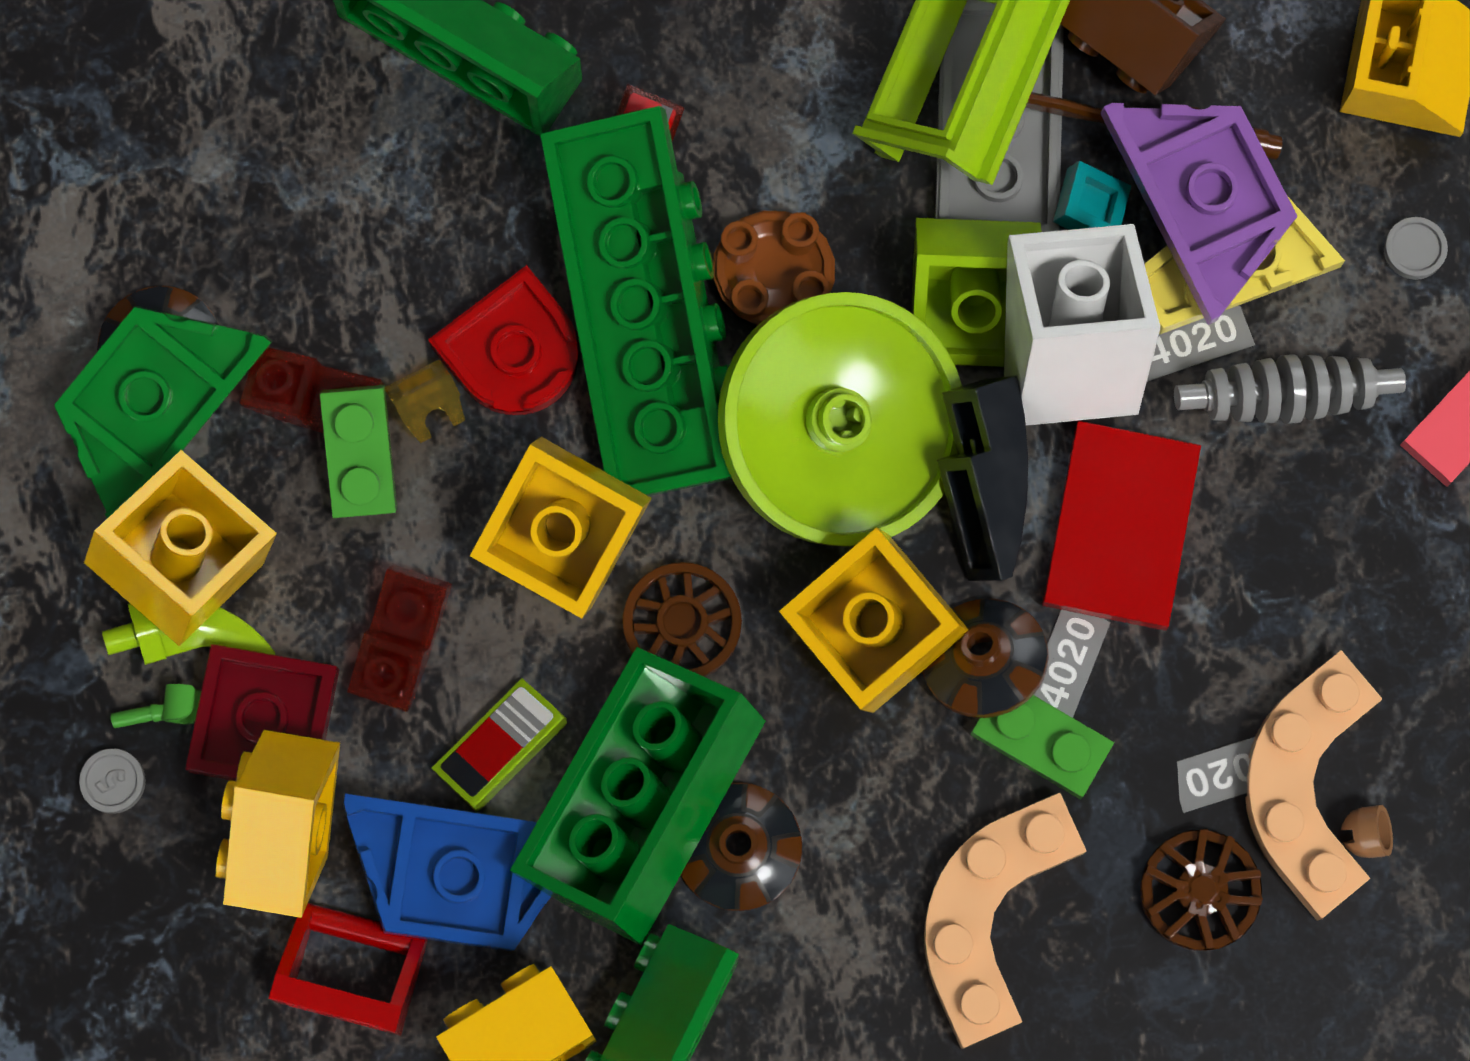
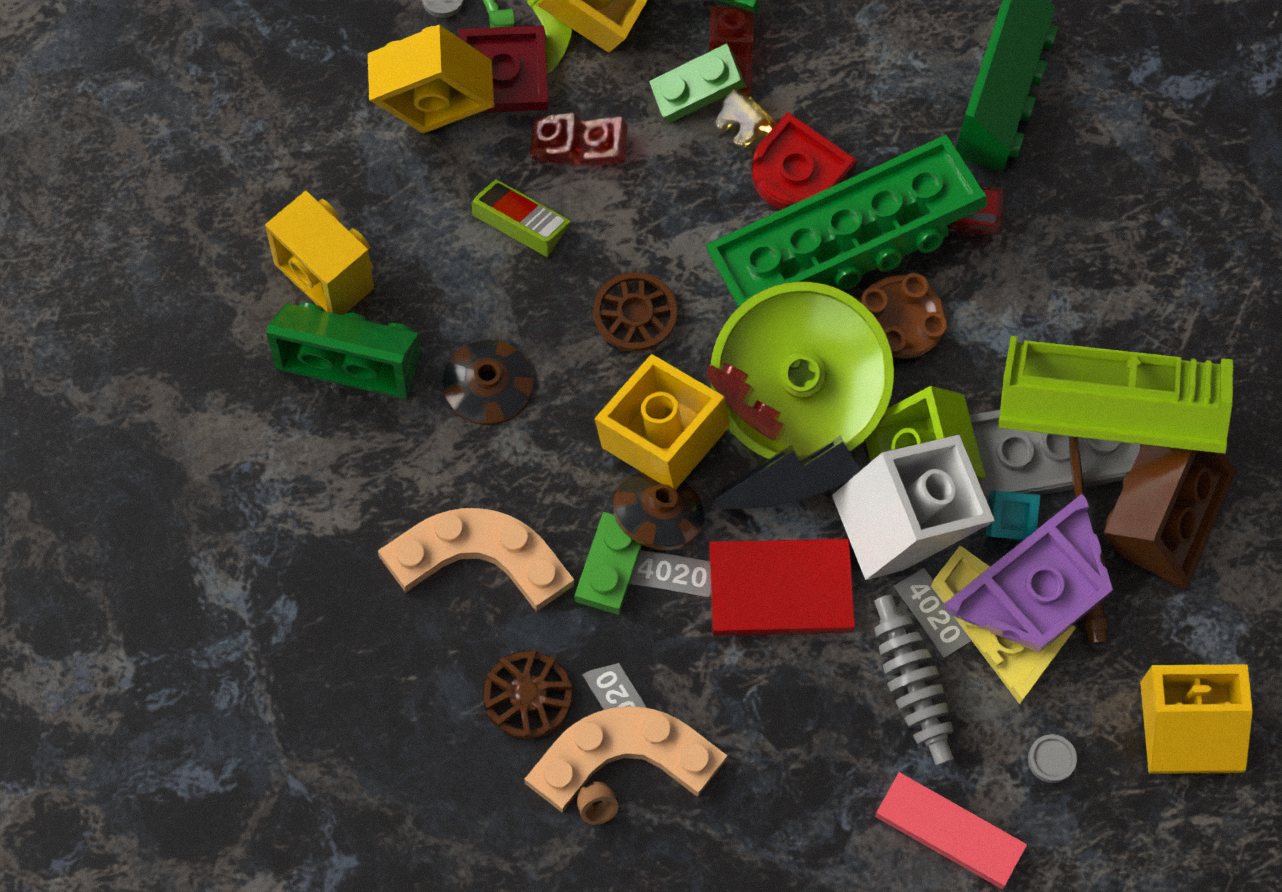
camera: 75 degrees right, 10 degrees down
(337, 1003) = (337, 119): red tile -> none
(444, 872) = (428, 206): blue wing -> none
(560, 527) = (676, 209): yellow brick -> none
(639, 794) = (503, 301): green slope -> none
(860, 510) = (732, 385): none -> clear red slope

